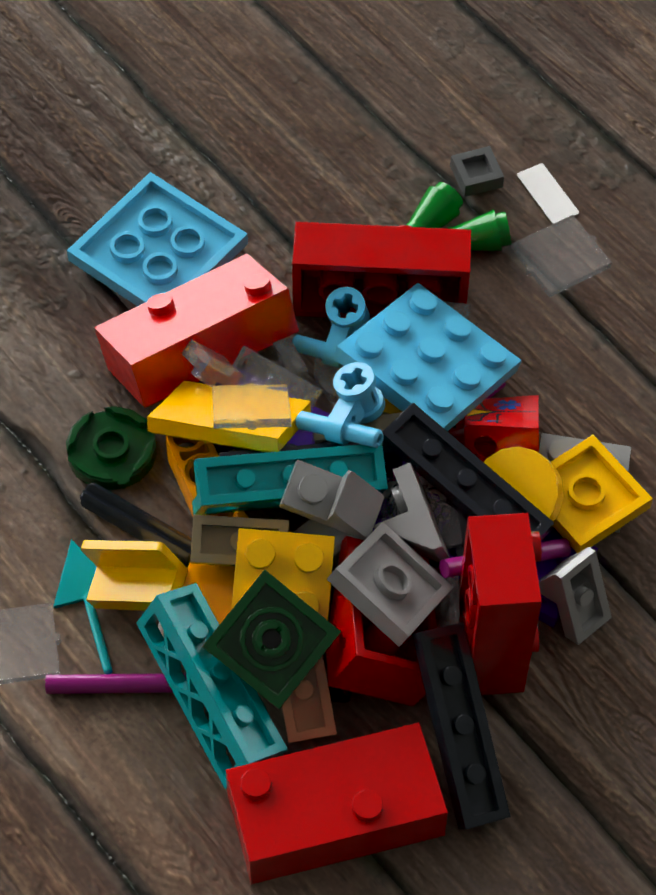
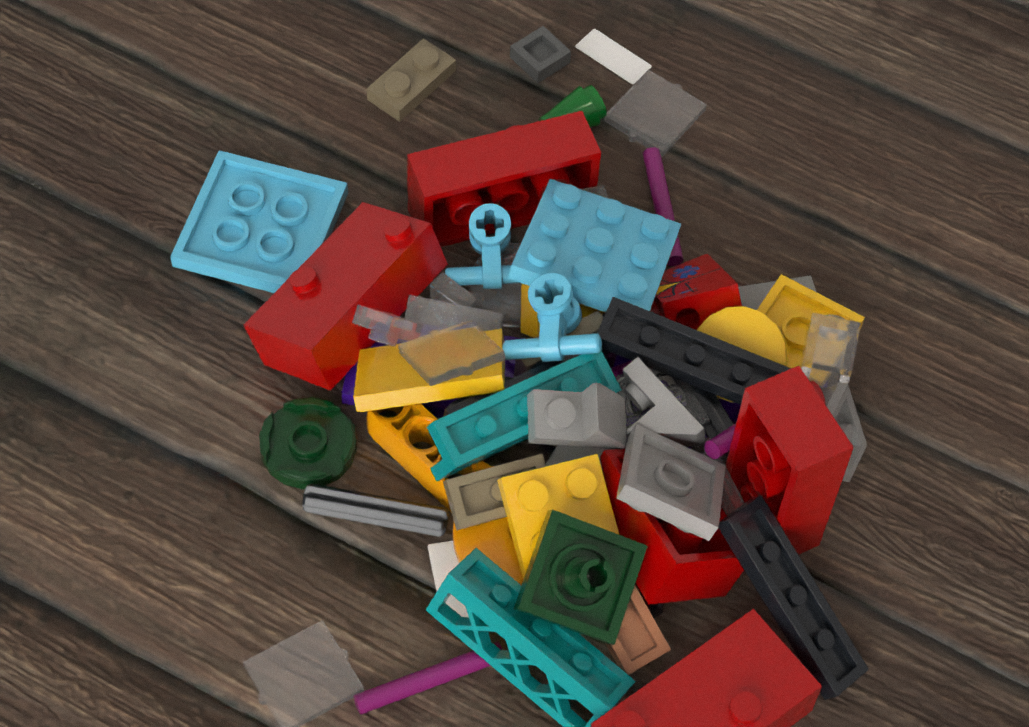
camera: 25 degrees left, 0 degrees up
(74, 588) = (344, 588): teal piece -> none
(131, 573) = (401, 562): yellow panel -> none
(352, 160) = (411, 79): none -> dark tan plate
(437, 207) = (519, 101): green cone -> none
(526, 339) = (661, 196): none -> magenta bar
(594, 517) = (829, 349): none -> clear brick

